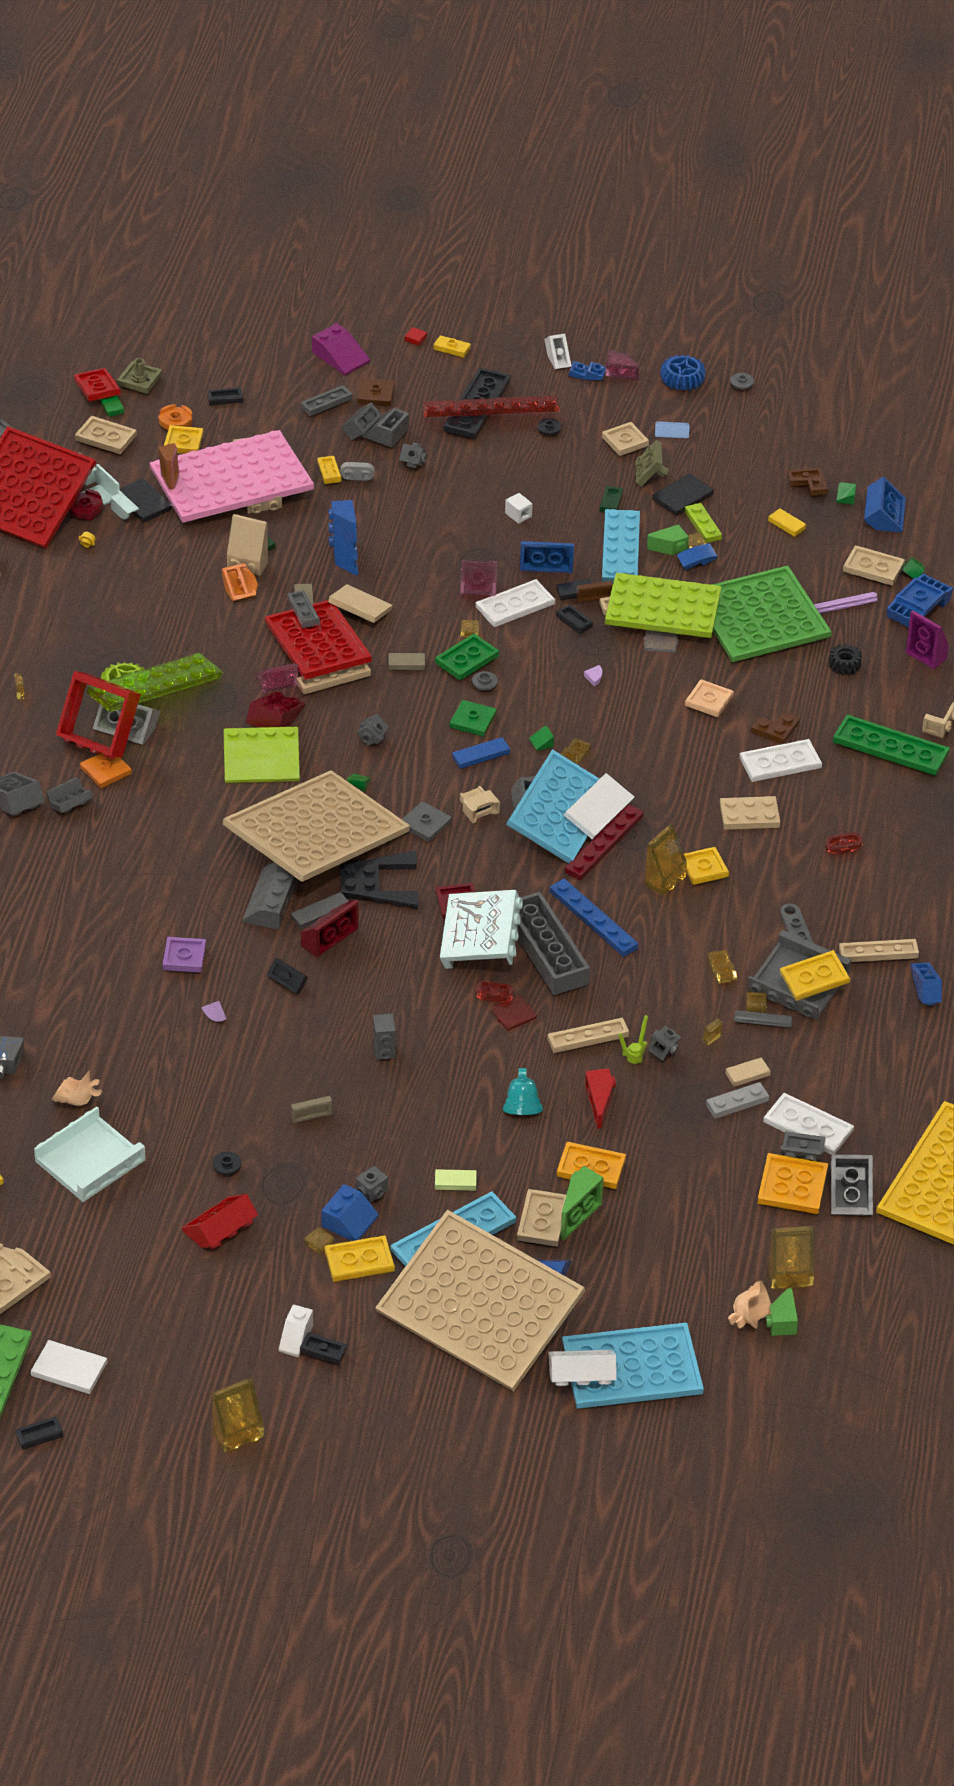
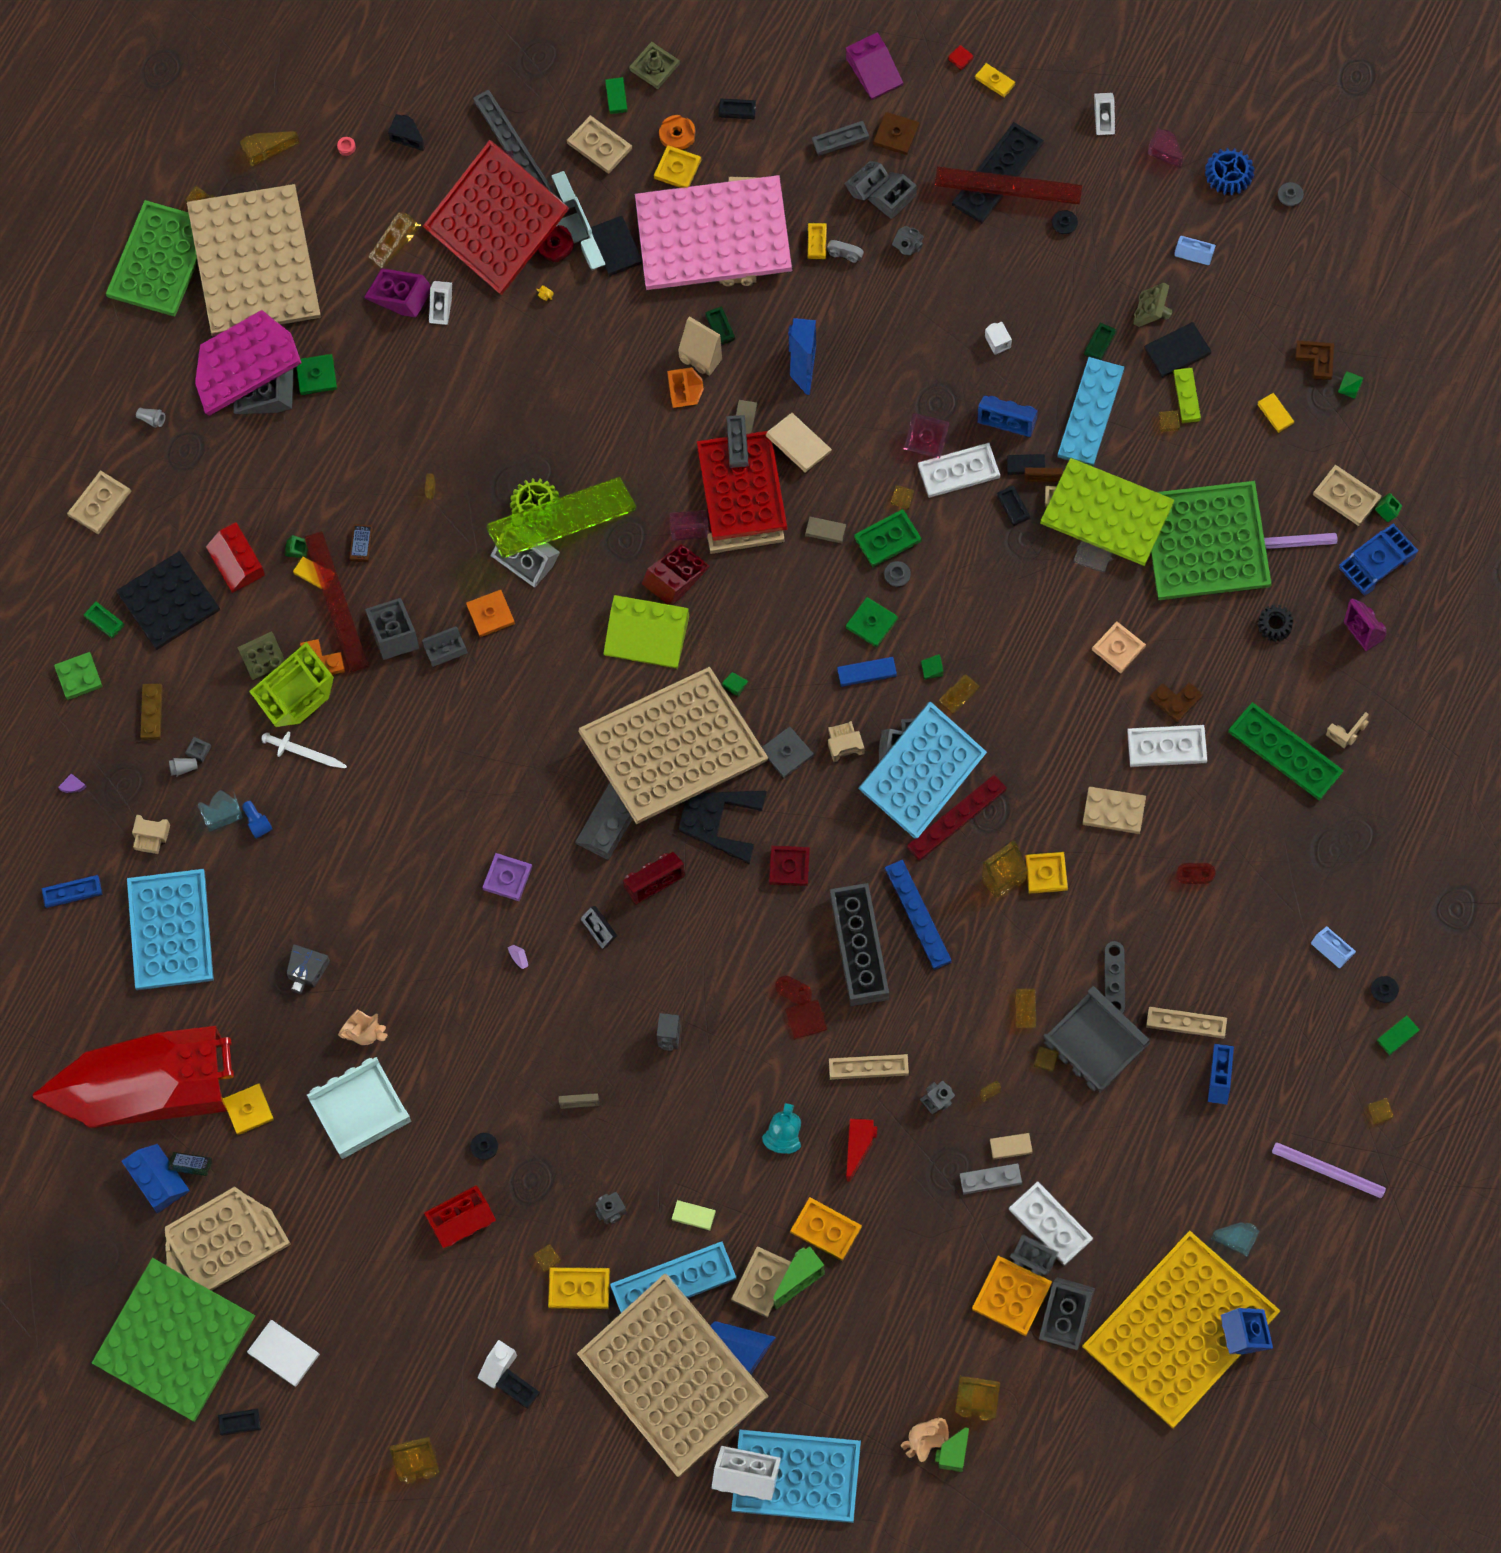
camera: 20 degrees right, 25 degrees up
(72, 707) = (486, 520): red window -> none
(97, 384) = (607, 68): red tile -> none
(169, 464) = (647, 218): dark orange tile -> none
(310, 914) = (653, 847): dark grey tile -> none
(348, 1214) = (581, 1237): blue slope -> none
(372, 730) = (763, 622): dark grey brick -> none
(481, 926) = (797, 917): light aqua panel -> none
(592, 372) = (1129, 147): blue slope -> none
(594, 675) = (1011, 589): lavender tile -> none
(599, 806) = (962, 775): white tile -> none
(625, 438) = (1139, 257): tan plate -> none
(635, 1050) = (908, 1098): lime plant -> none
(668, 541) = (1142, 417): bright green slope -> none
(695, 555) = (1165, 444): blue slope -> none
(763, 1018) = (1046, 1083): dark grey axle -> none
(814, 975) = (1107, 1051): yellow tile -> none
(884, 506) = (1385, 414): blue slope -> none

